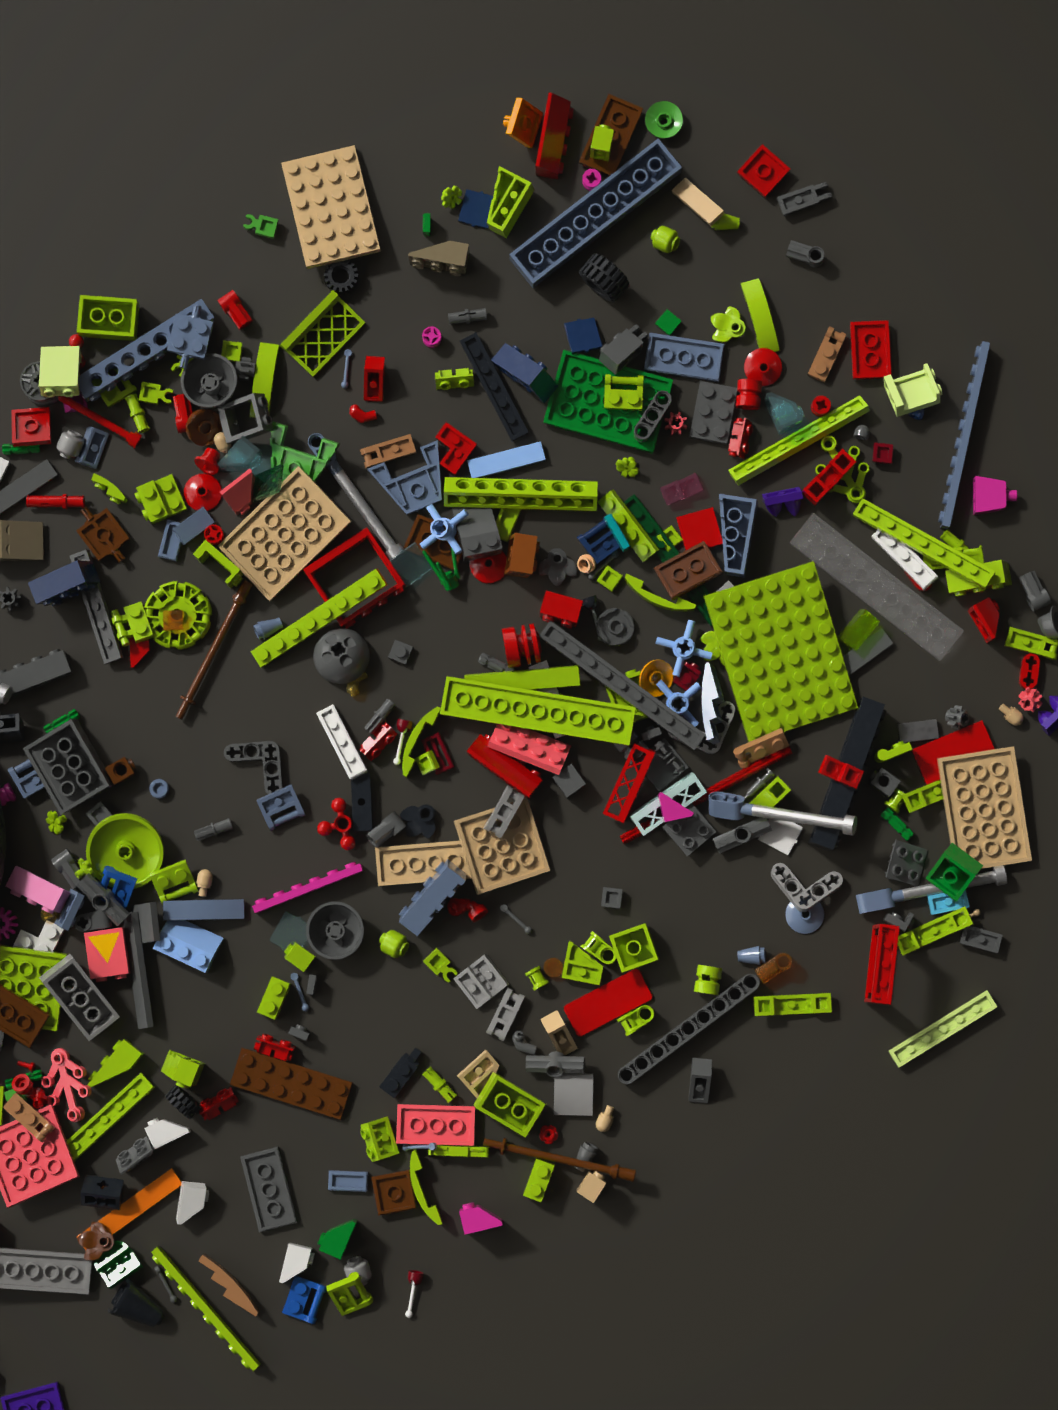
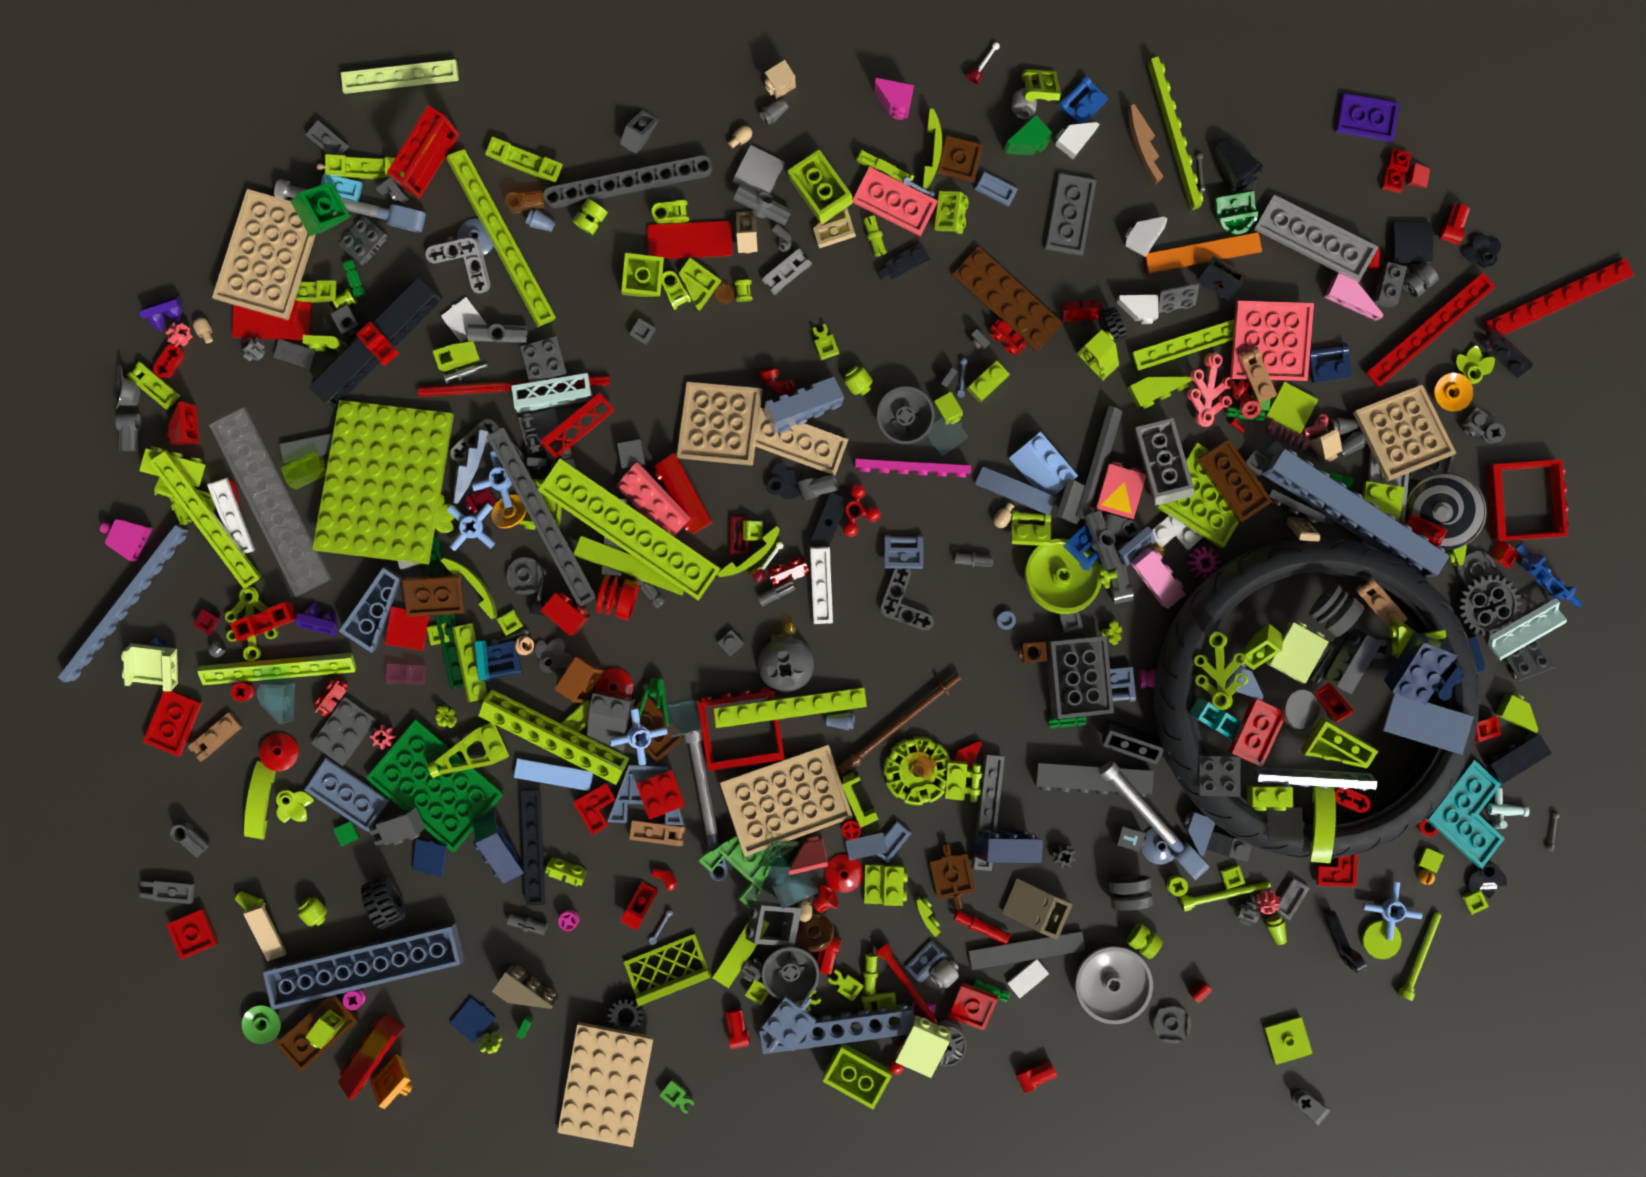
camera: 160 degrees left, 5 degrees up
(93, 1241) = (1248, 240): reddish brown plate -> none
(400, 487) = (660, 794): none -> red plate
(481, 981) = (794, 311): light grey slope -> none
(504, 812) = (702, 451): light grey plate -> none
(504, 908) = (744, 368): dark grey hinge -> none
(508, 201) = (438, 1014): lime wedge -> none
(538, 1180) = (825, 109): lime brick -> none
(548, 1129) = (797, 151): red plate -> none
(573, 461) = (492, 743): none -> lime plate
(615, 1171) = (753, 83): reddish brown bar -> none
(623, 399) = (418, 781): lime plate -> none
(650, 425) = (390, 754): dark grey beam -> none
(671, 809) = (549, 382): dark pink slope -> none
(733, 807) = (492, 359): piece -> none
(748, 397) = (301, 735): red wheel -> none
(760, 747) = (444, 404): medium nougat plate -> none
(780, 923) = (501, 237): none -> lime plate

